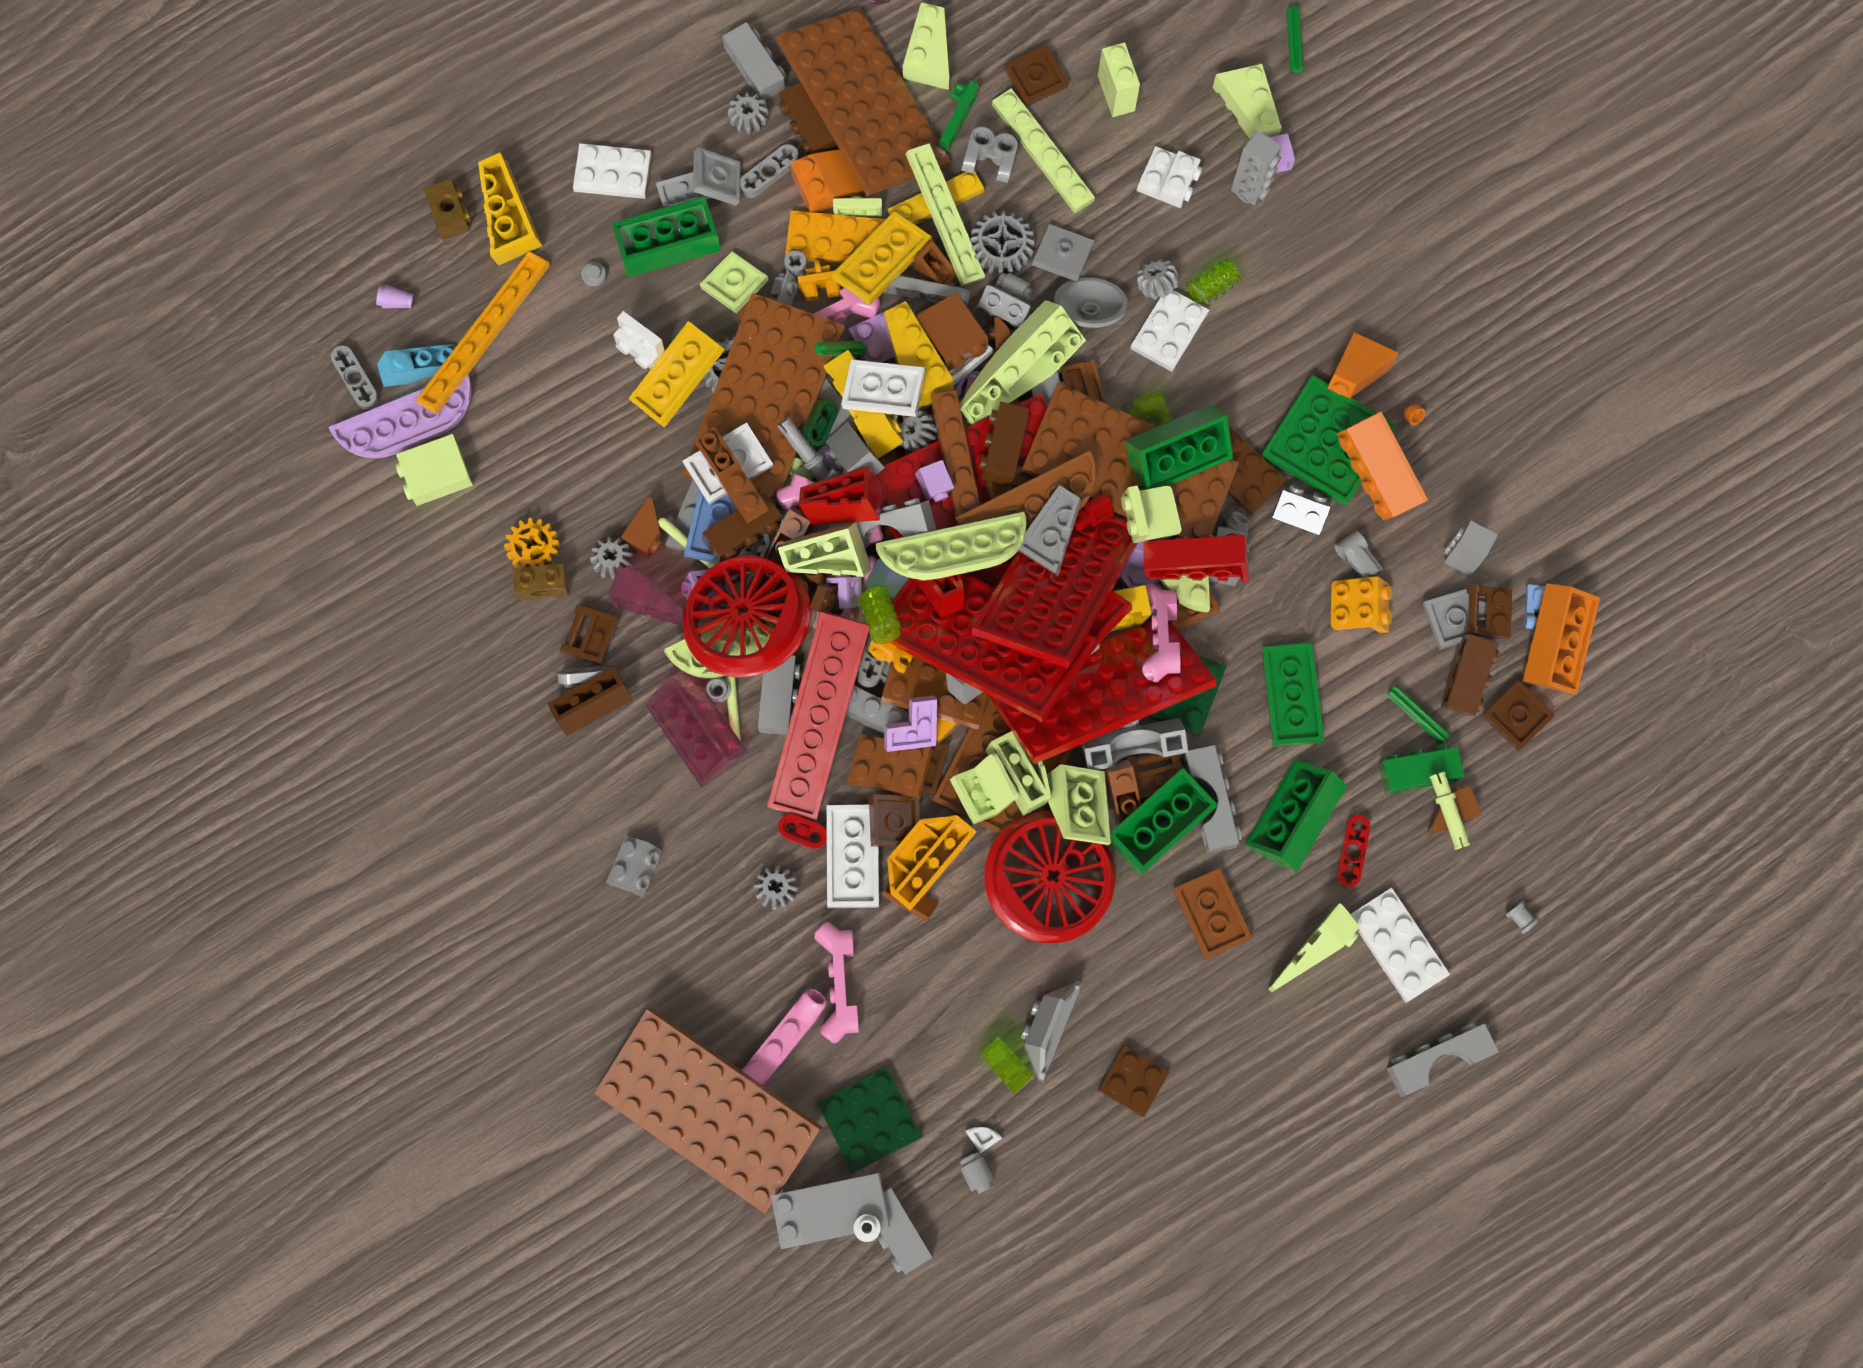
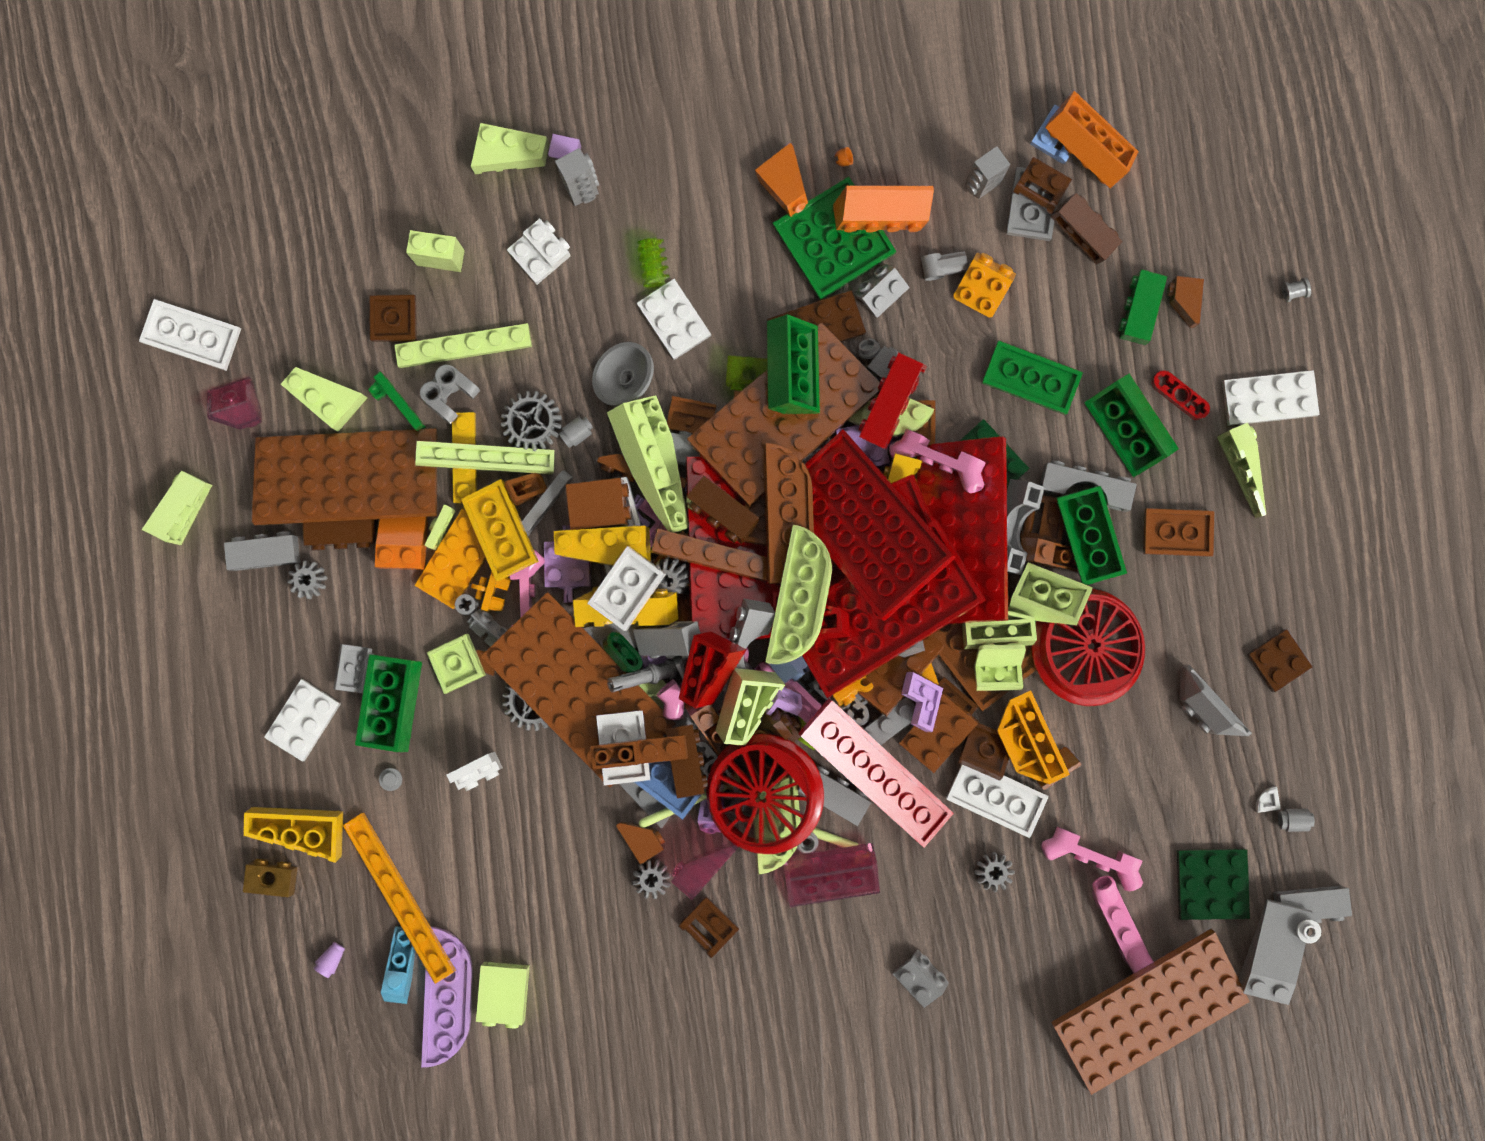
camera: 60 degrees left, 10 degrees up
(346, 372) = (368, 1020): light grey beam -> none
(535, 535) = (601, 933): light orange gear -> none
(540, 582) = (645, 948): pearl gold brick -> none
(573, 676) = (741, 948): light grey plate -> none
(590, 701) = (768, 953): reddish brown brick -> none
(676, 374) = (518, 751): yellow plate -> none
(716, 176) = (354, 634): light grey plate -> none
(751, 176) = (366, 604): light grey beam -> none
(803, 831) = (959, 830): red plate -> none
(836, 348) = (566, 605): green axle -> none
(880, 615) = (822, 688): clear neon green piece -> none
(934, 481) = (728, 584): lavender brick -> none
(1001, 304) = (592, 448): light grey bracket -> none
(1005, 1065) = (1220, 757): clear neon green slope -> none
(1051, 530) = (819, 509): light grey wing -> none
(1063, 252) = (564, 374): light grey plate -> none
(1095, 512) = (814, 463): red plate -> none
(1150, 513) = (839, 418): yellowish green bracket -> none
(1157, 279) = (628, 308): light grey gear -> none
(1294, 39) = (467, 83): green axle -> none
(1413, 1073) = (1375, 438): light grey arch -> none
(1418, 714) = (1095, 285): green axle -> none
(1449, 810) = (1182, 301): yellowish green pin -> none
(1518, 715) = (1134, 206): reddish brown plate -> none

